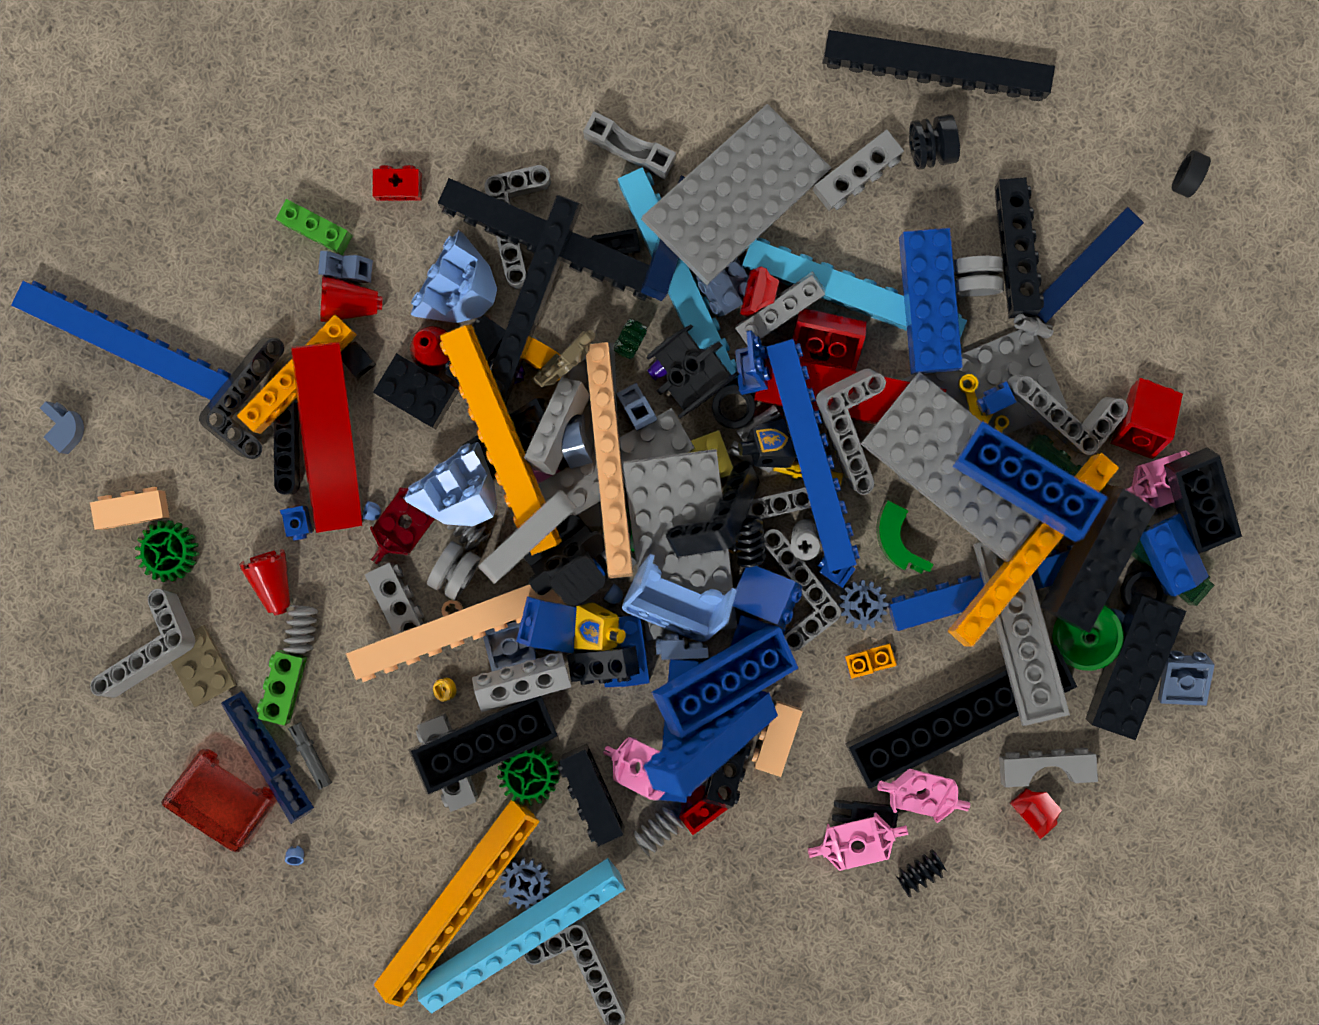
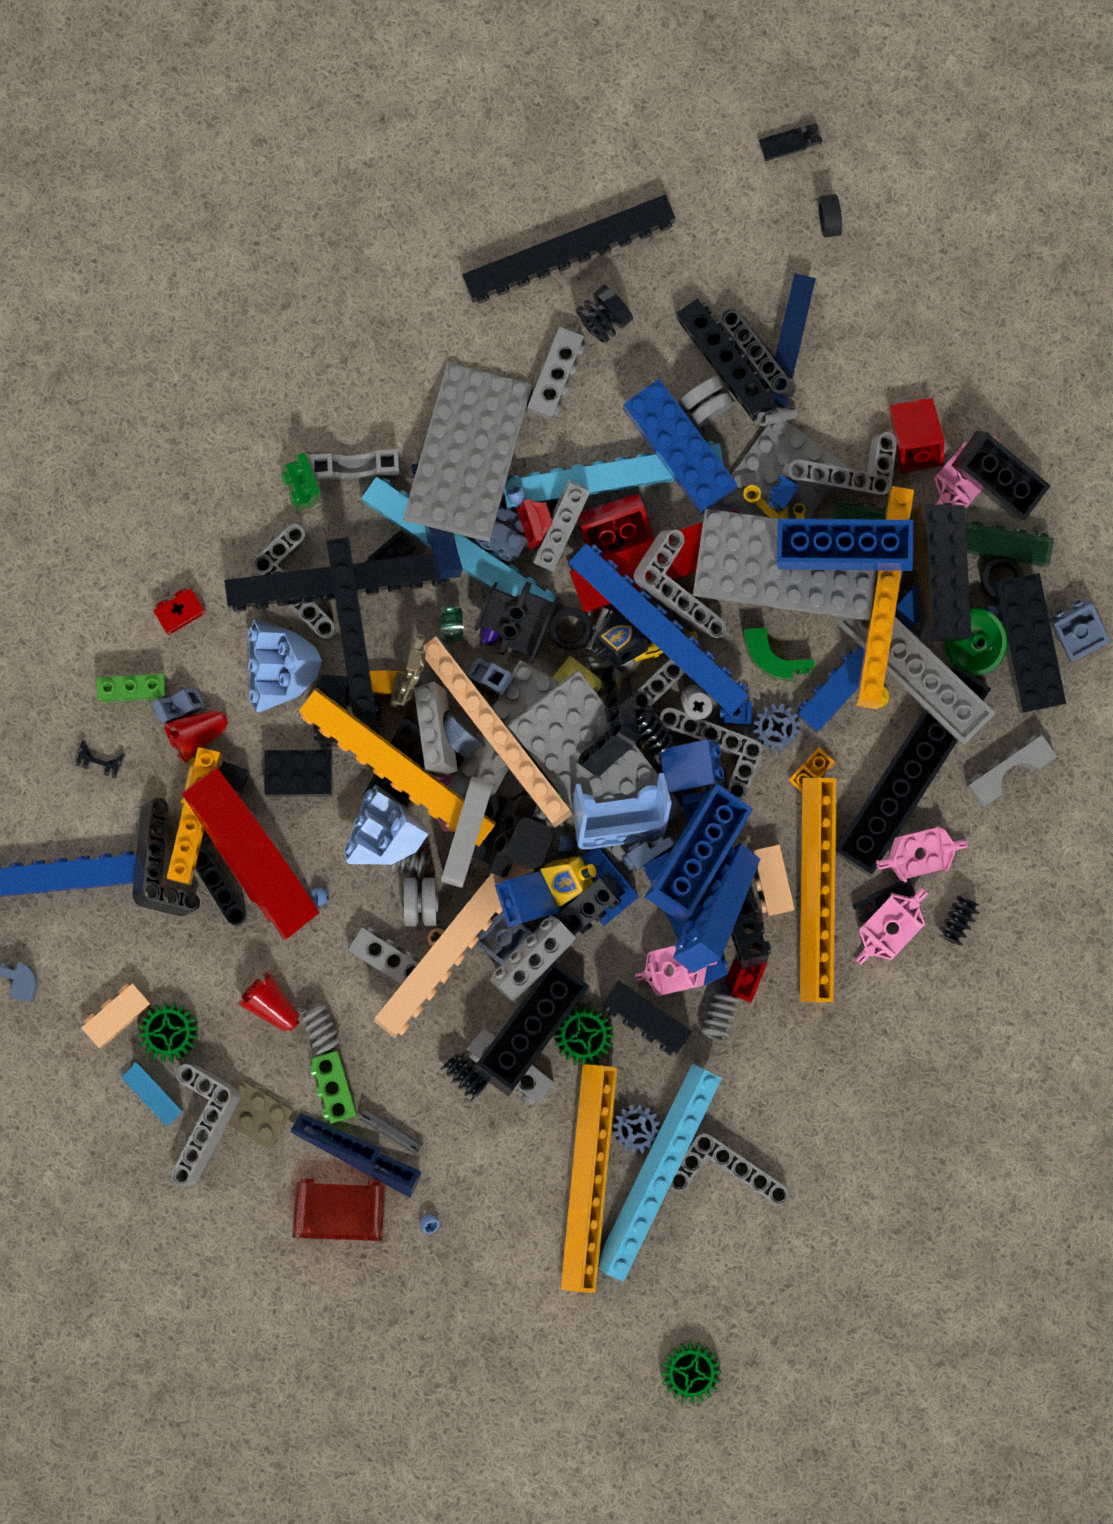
camera: 35 degrees left, 5 degrees down
(122, 596) = (152, 1093): none -> dark azure panel
(240, 262) = (85, 754): none -> black piece
(302, 515) = (255, 938): blue brick -> none
(391, 535) = (352, 906): dark red plate -> none
(402, 743) = (465, 1075): none -> black piece
(426, 349) = (292, 738): red cone -> none
(444, 689) = (471, 1008): yellow tile -> none
(572, 132) = (301, 483): none -> green plate
(752, 365) = (565, 585): blue bracket -> none
(756, 257) = (515, 495): none -> medium blue hinge
(812, 772) = (818, 890): none -> light orange brick
(1037, 811) = (1025, 812): red slope -> none
(1051, 249) = (762, 362): none -> black beam
(1173, 556) = (1004, 533): blue slope -> none
(1191, 86) = (788, 142): none -> black hinge

